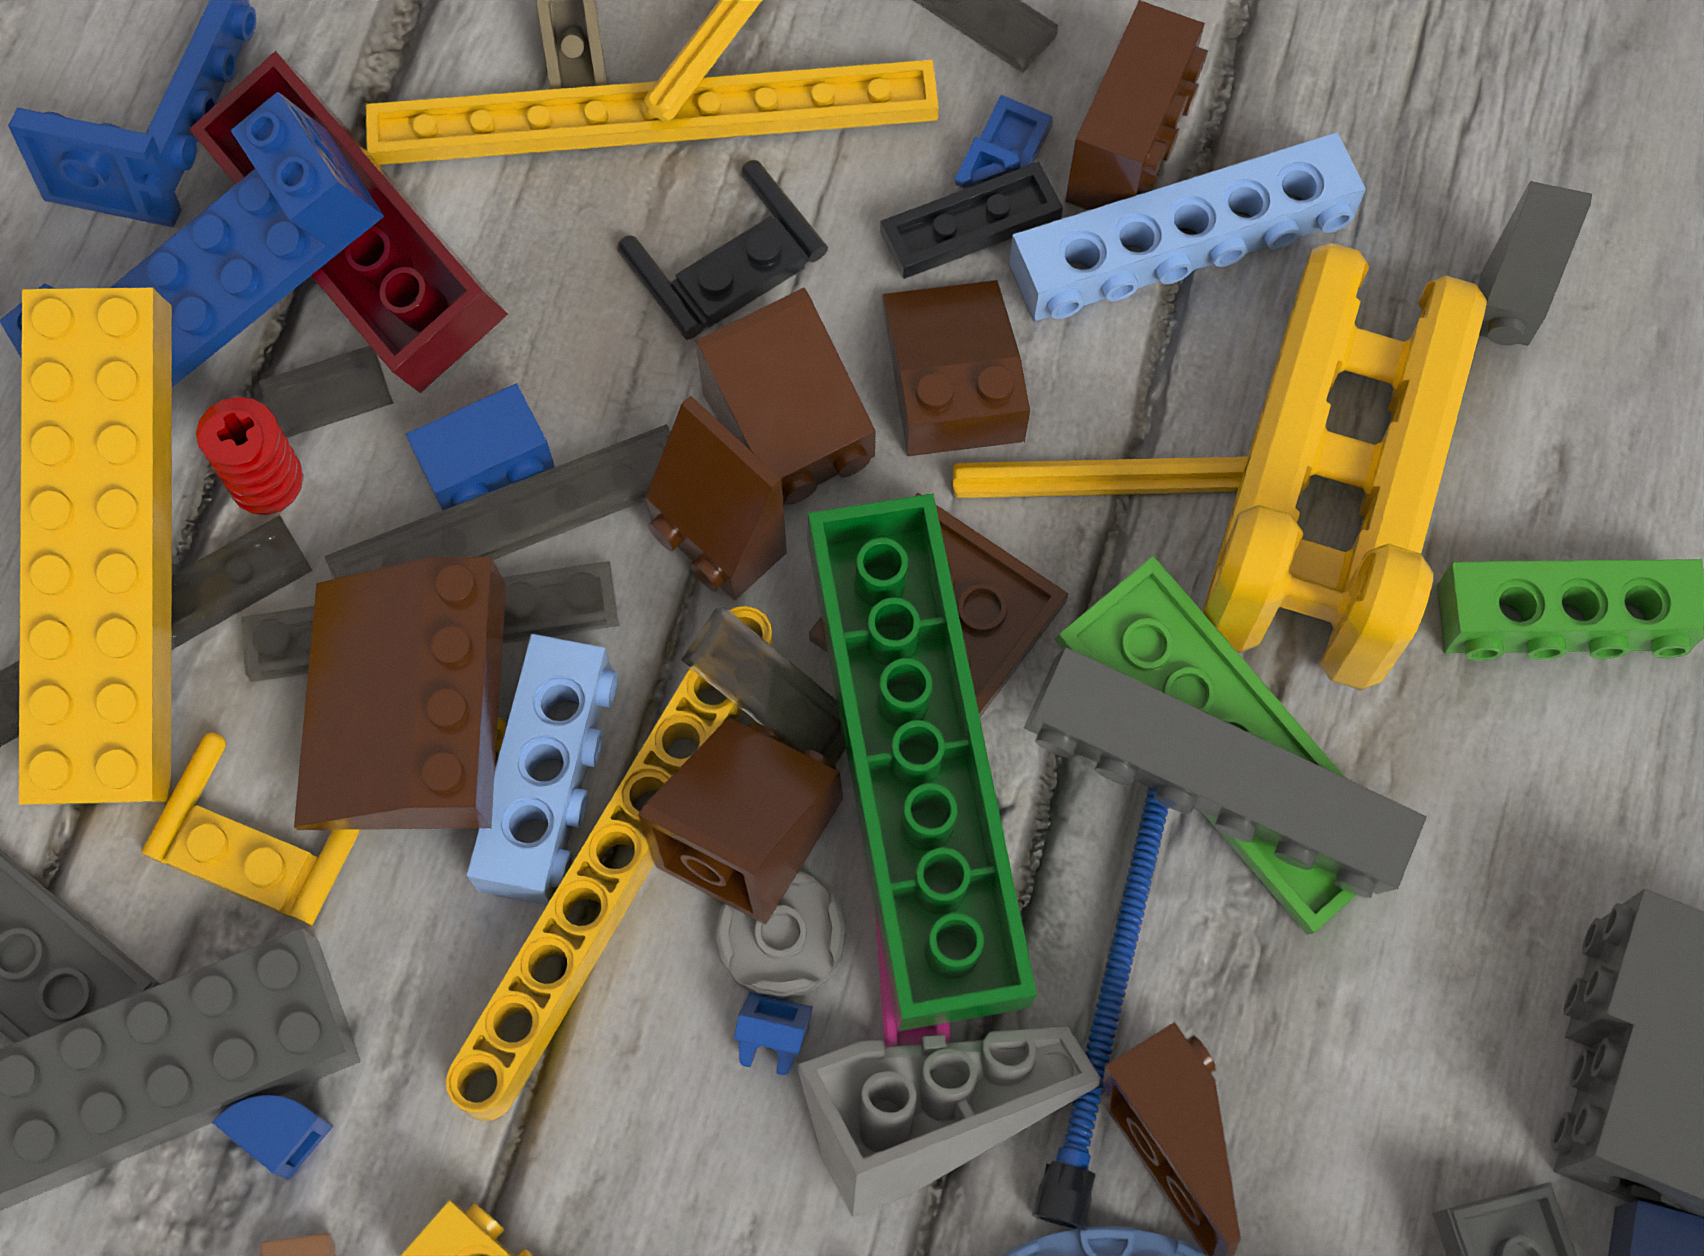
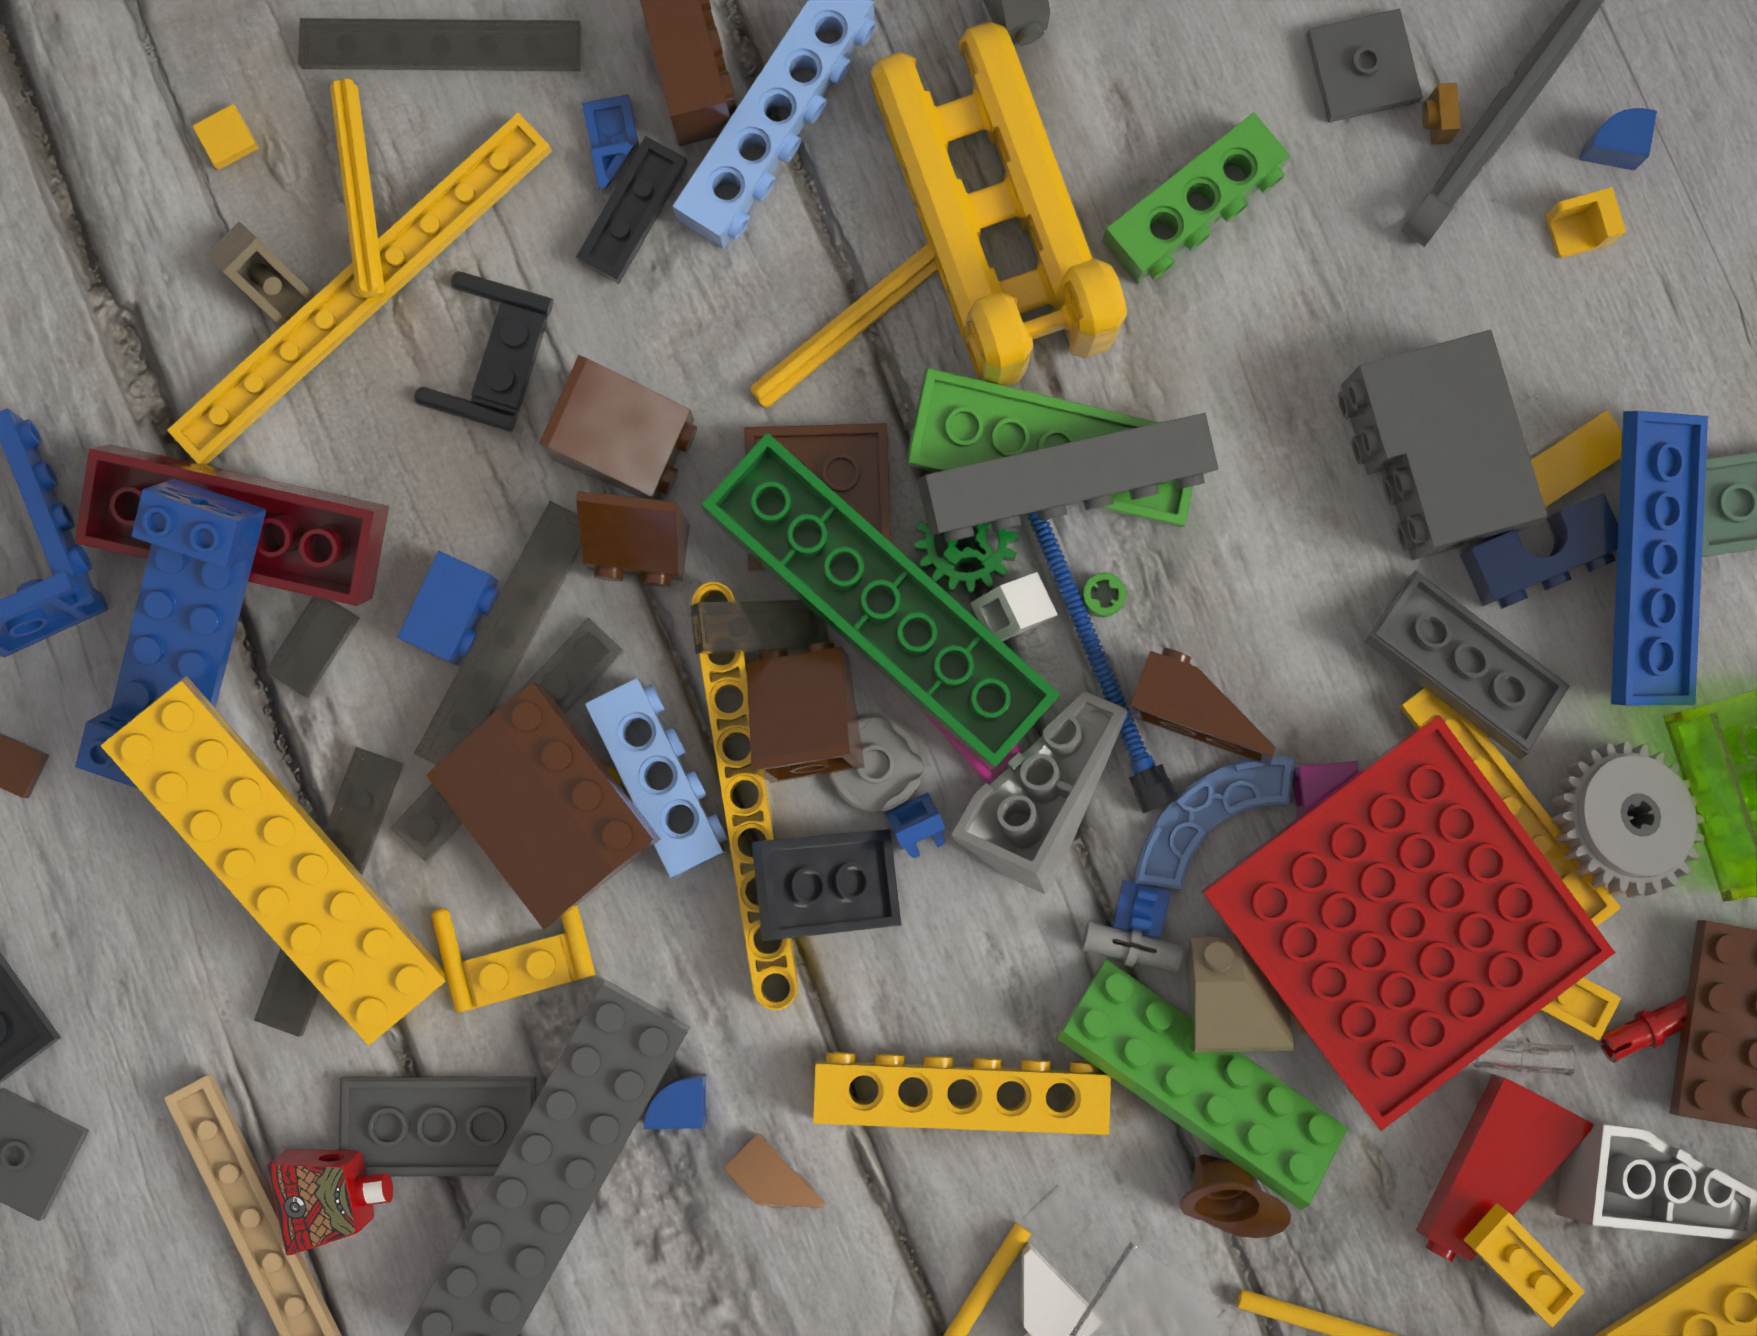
camera: 35 degrees left, 15 degrees up
(250, 455) = (292, 720): red piece -> none
(622, 1012) = (826, 884): none -> black plate
(956, 368) = (699, 320): reddish brown slope -> none
(1033, 780) = (952, 557): none -> green gear
(1060, 879) = (1014, 607): none -> white brick
(1187, 941) = (1113, 584): none -> bright green bush

